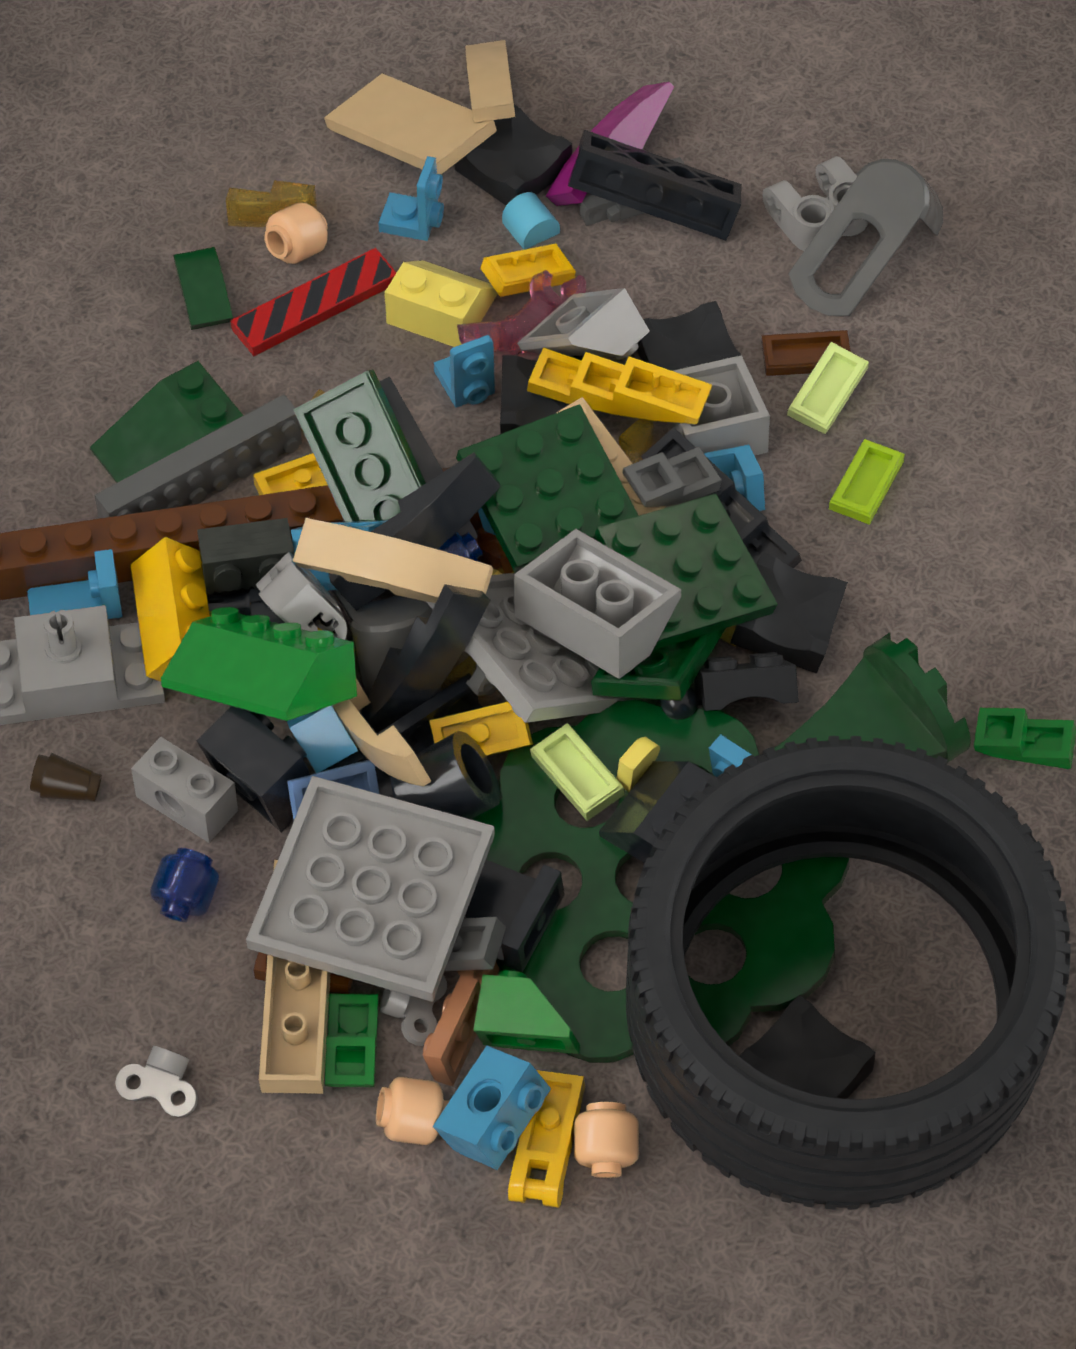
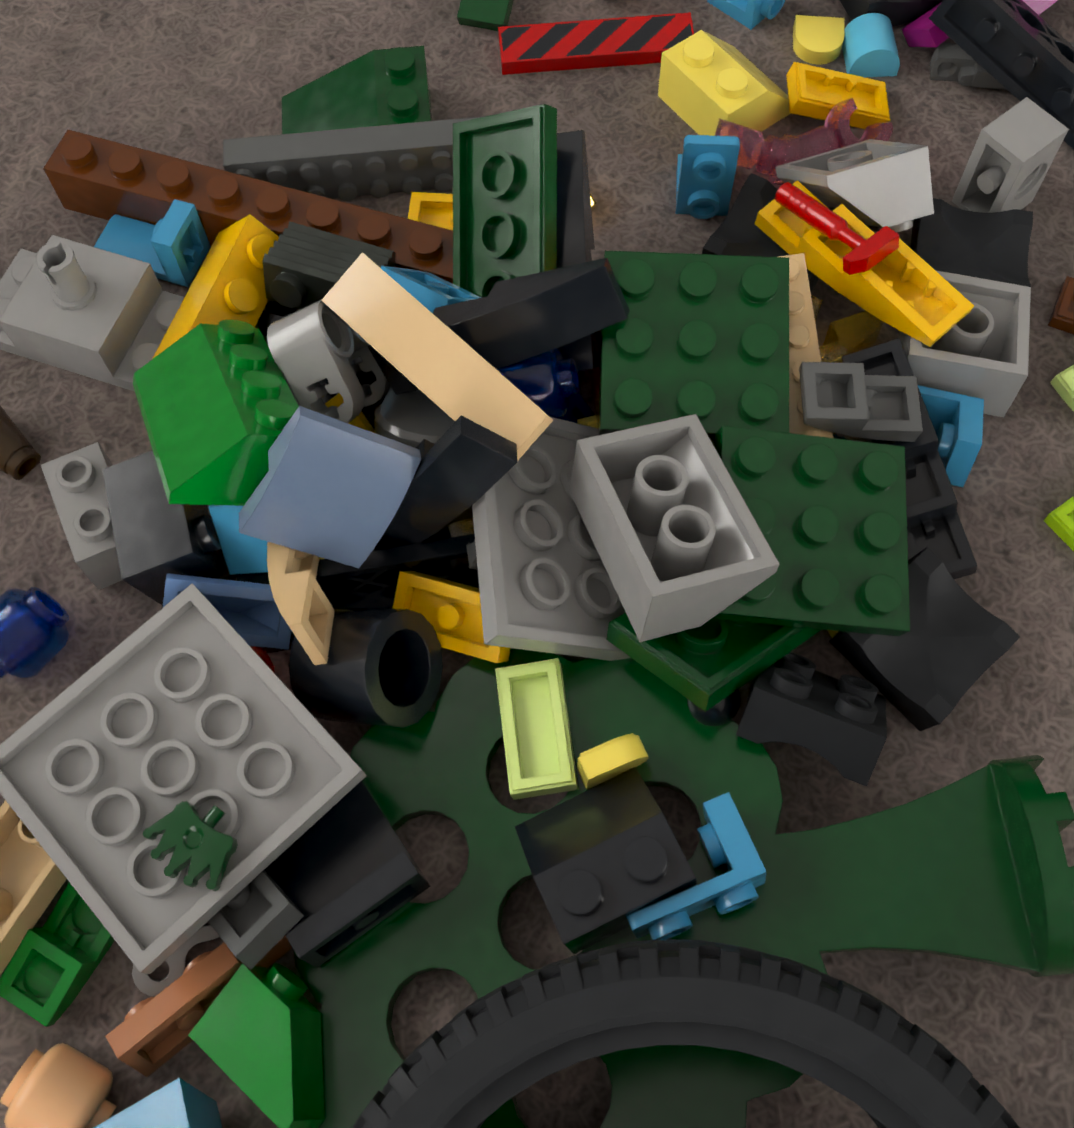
camera: 30 degrees right, 10 degrees up
(381, 670) = (329, 488): none -> sand blue slope
(419, 908) = (193, 843): none -> dark green piece
(484, 228) = (818, 38): none -> light yellow tile
(589, 370) = (864, 253): none -> red piece
(681, 271) = (1010, 160): none -> light grey brick

